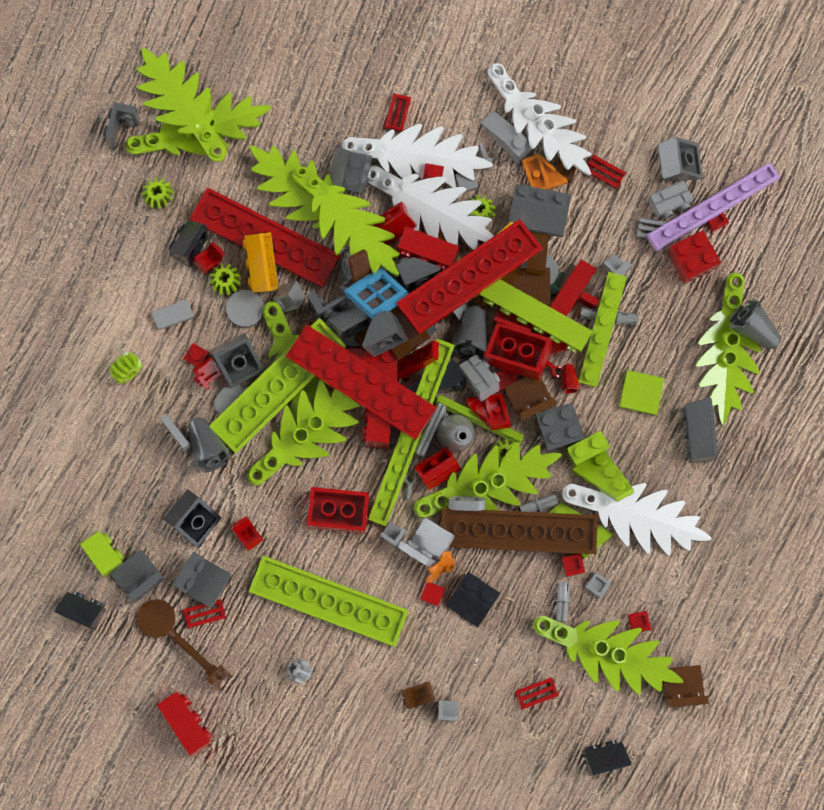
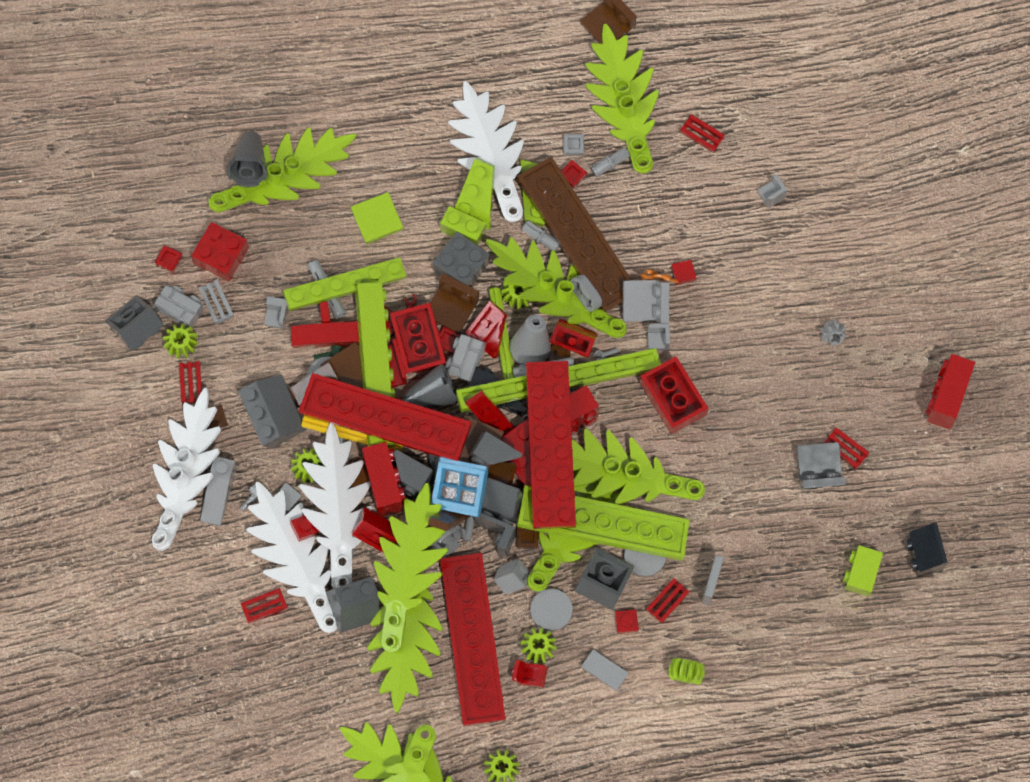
camera: 120 degrees left, 5 degrees down
(137, 576) = (859, 524): dark grey bracket -> none
(157, 619) = (882, 483): reddish brown piece -> none
(189, 242) = (529, 701): black slope -> none
(192, 518) = (774, 517): black slope -> none
(193, 412) = (679, 587): none -> red tile
(206, 373) = (637, 599): red bracket -> none
(206, 447) = (701, 550): dark grey cone -> none
(247, 533) = (751, 459): red bracket -> none
(260, 262) = (502, 619): light orange slope -> none
(328, 601) = (756, 352): lime plate -> none
(418, 695) = (778, 224): reddish brown bracket -> none
(472, 599) = (663, 234): black slope -> none
(542, 174) = (234, 433): orange wing -> none
(569, 379) = (409, 284): red cone -> none
(606, 758) = (715, 40): black slope -> none
(635, 185) = (172, 343): none -> lime gear
(639, 620) = (579, 92): red tile -> none
(699, 431) = (378, 144): dark grey slope -> none
(712, 207) = (159, 267): lavender tile -> none

